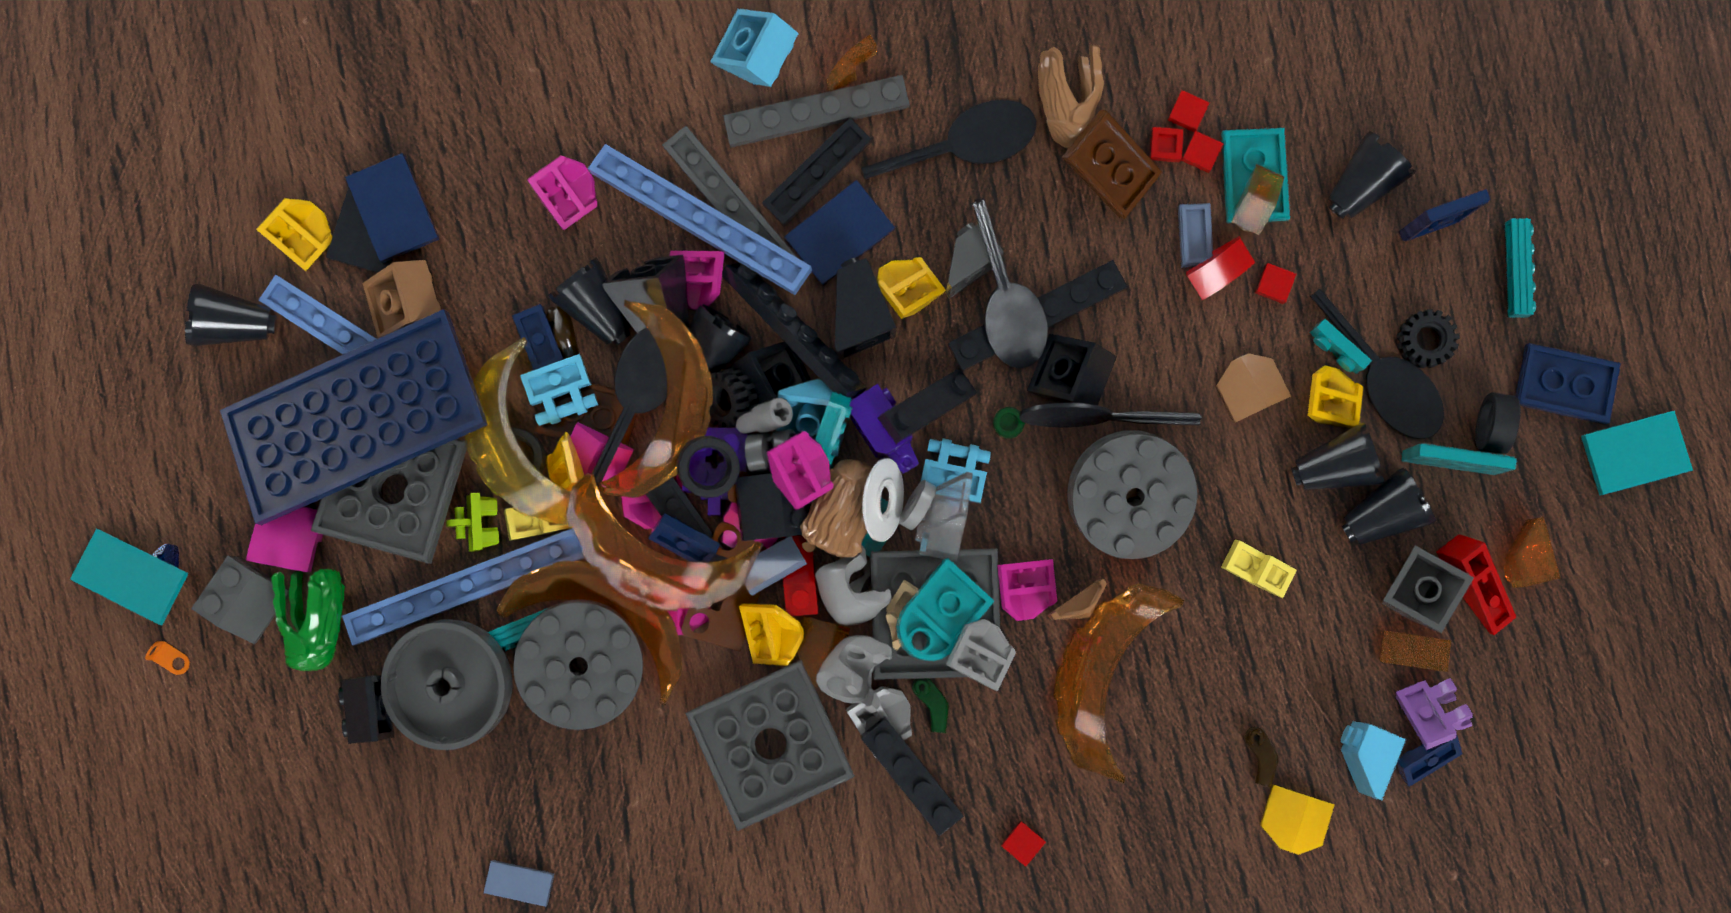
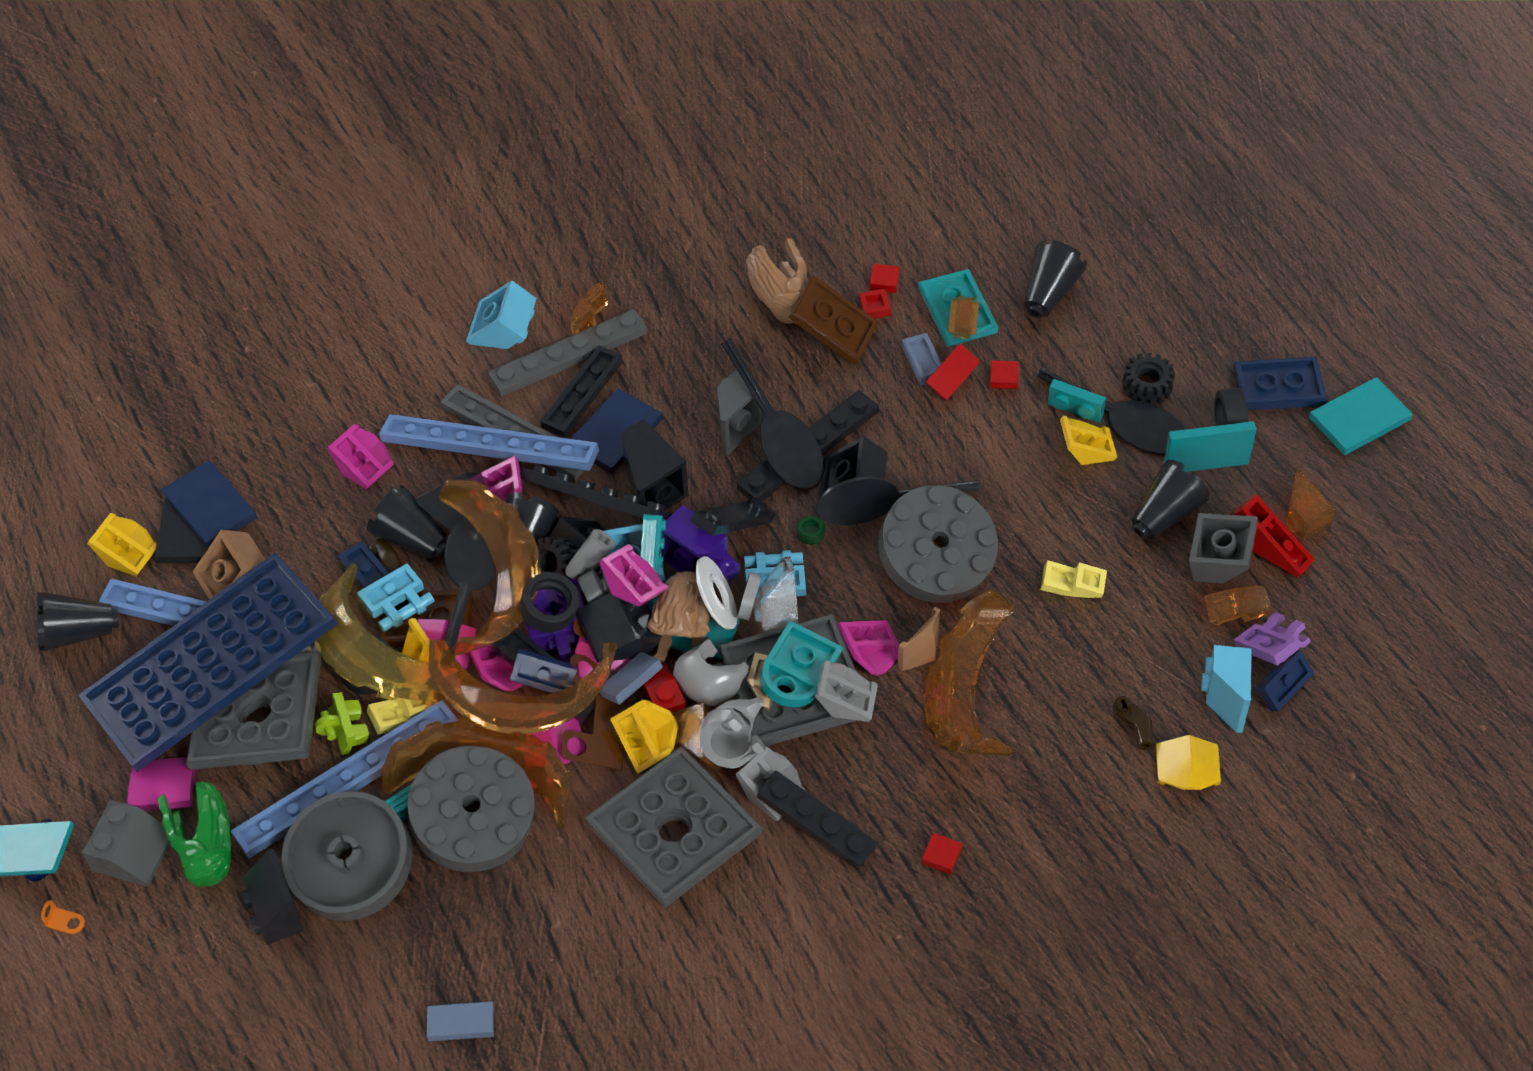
camera: 15 degrees left, 30 degrees down
(908, 285) = (695, 450): yellow slope -> none
(935, 701) = (818, 758): dark green arm -> none
(977, 136) = (705, 339): black piece -> none
(1202, 152) = (906, 302): red tile -> none
(1251, 386) = (1012, 451): medium nougat slope -> none
(1340, 462) = (1111, 477): black cone -> none
(1444, 215) = (1121, 280): dark blue tile -> none
(1520, 268) = (1203, 314): teal piece -> none

